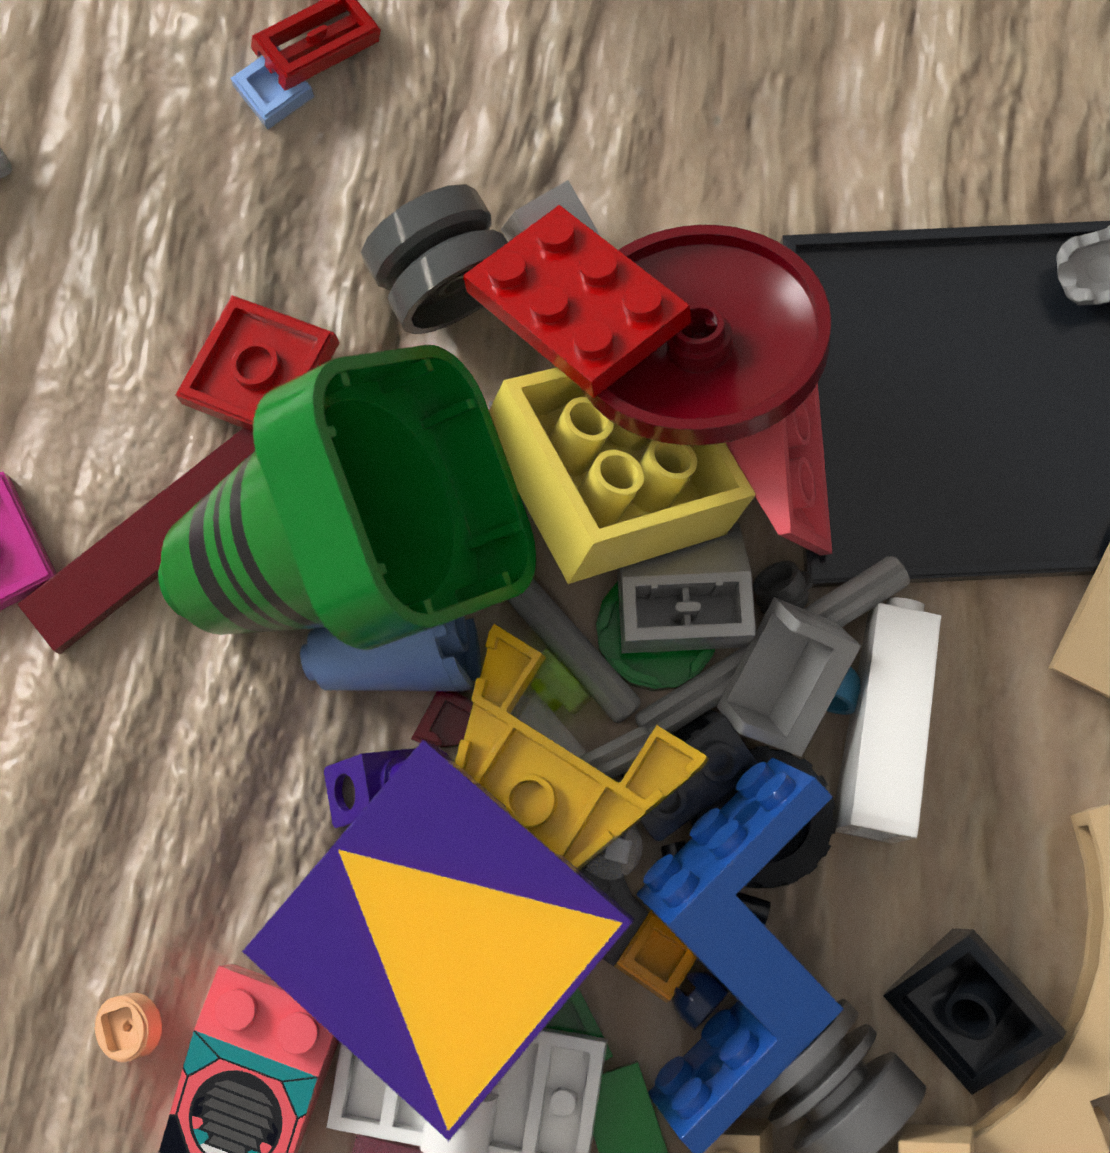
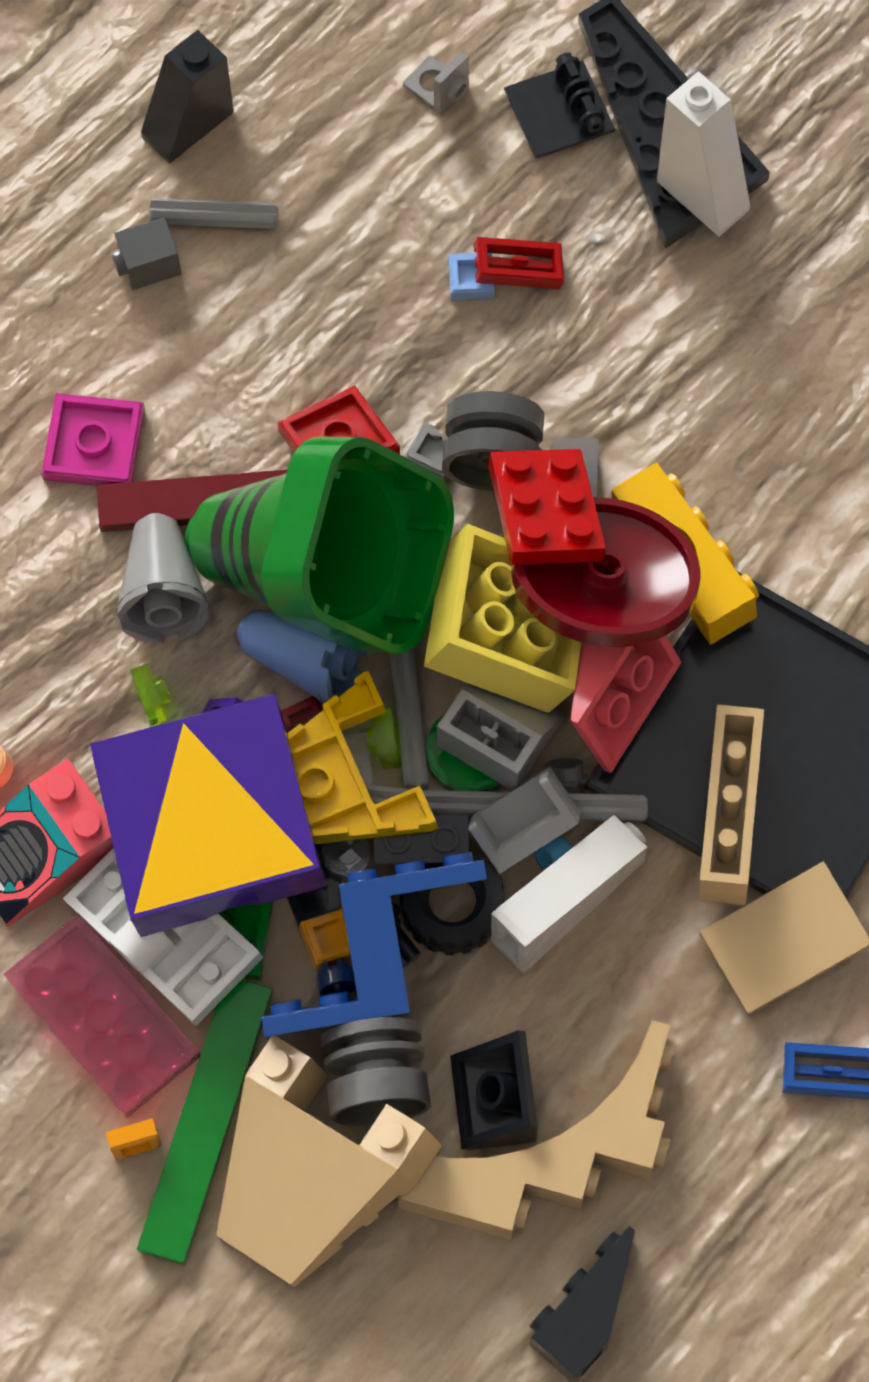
camera: 35 degrees right, 10 degrees down
(174, 673) = (160, 584): none -> light grey cone
(256, 811) = (152, 694): none -> clear neon green plate
(368, 319) = (428, 449): none -> light grey tile
(666, 202) = (723, 597): none -> yellow arch
(1000, 505) = (731, 805): none -> tan brick

